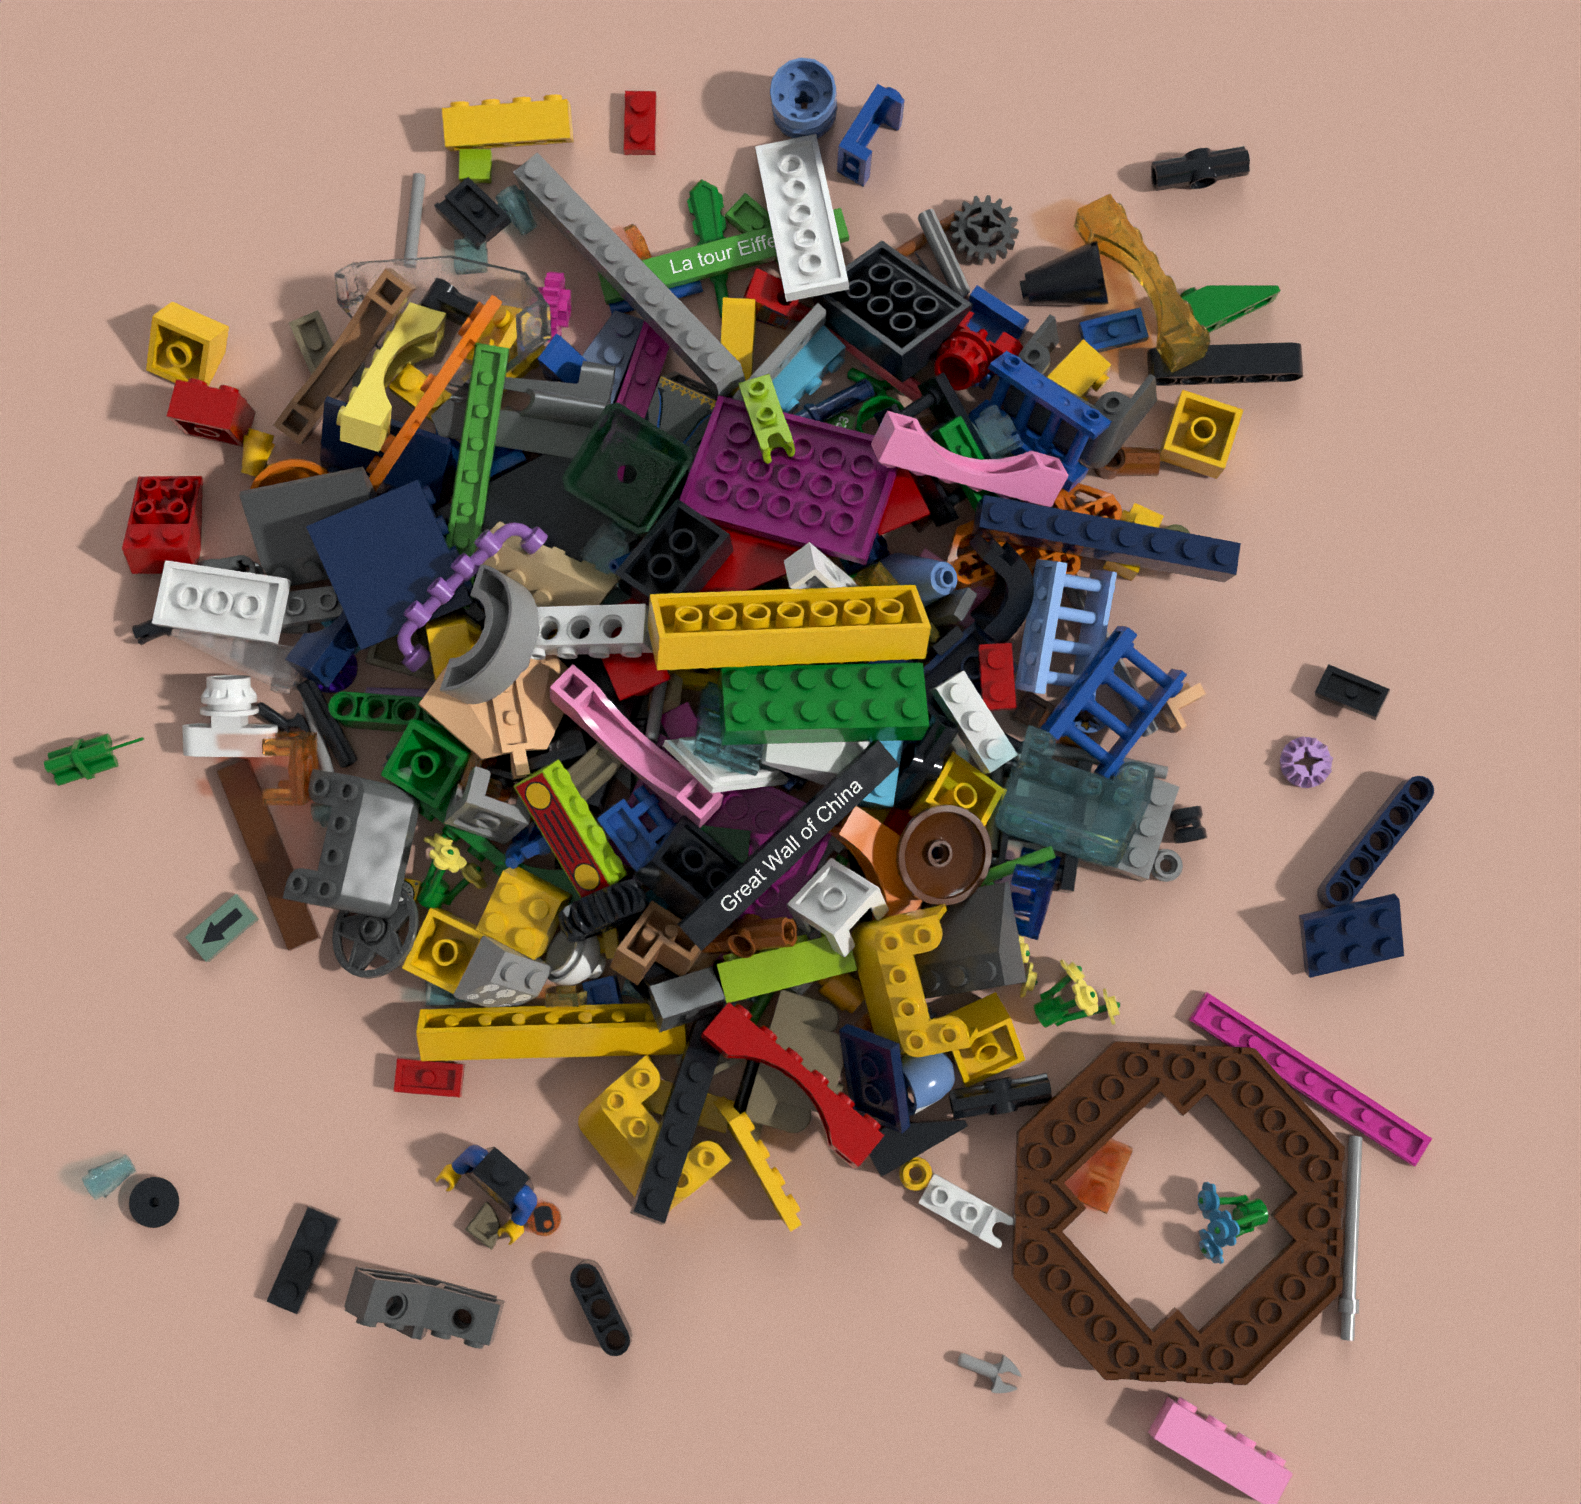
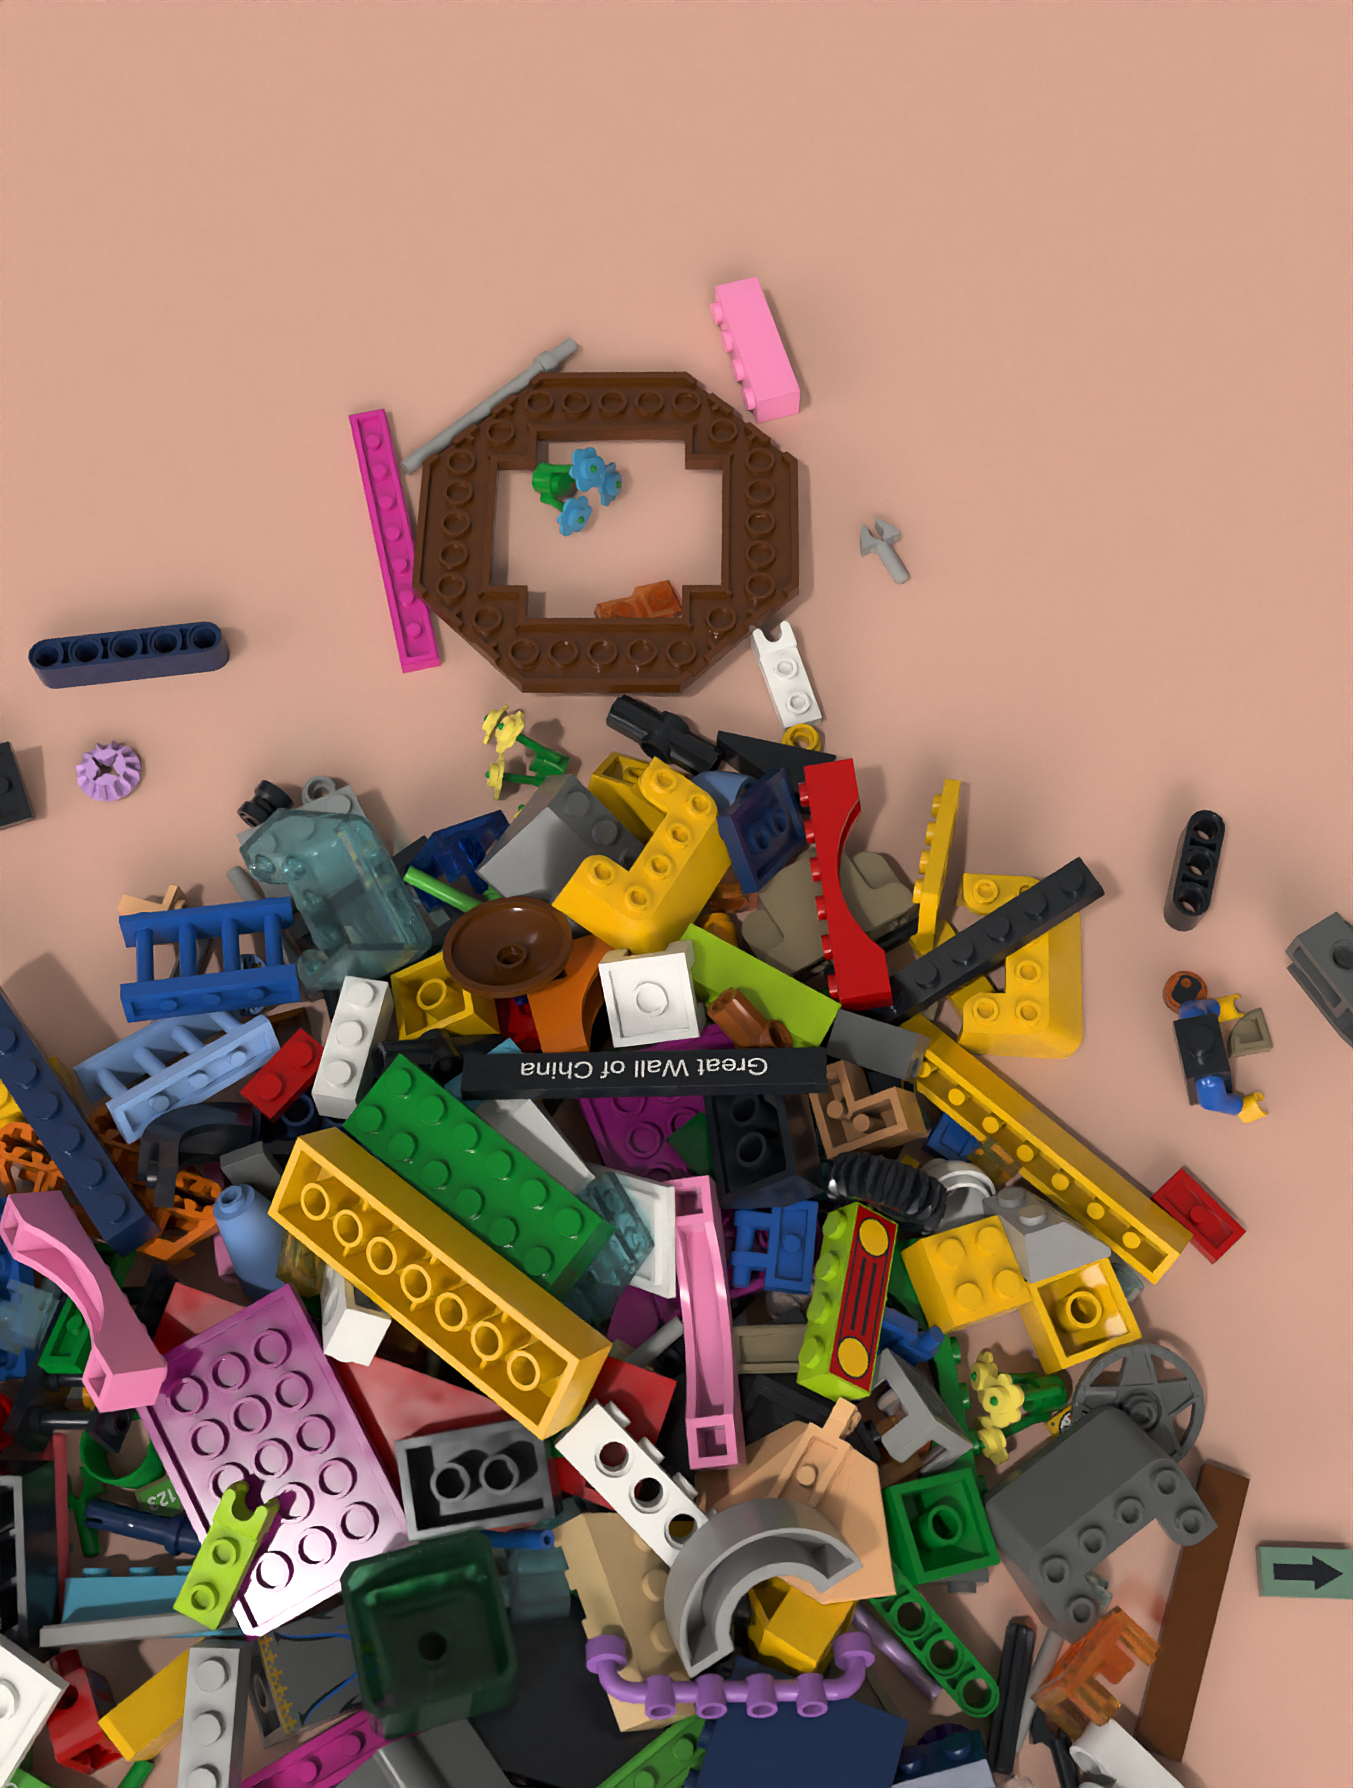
camera: 135 degrees left, 15 degrees down
(1351, 935) = (234, 601): dark blue plate -> none

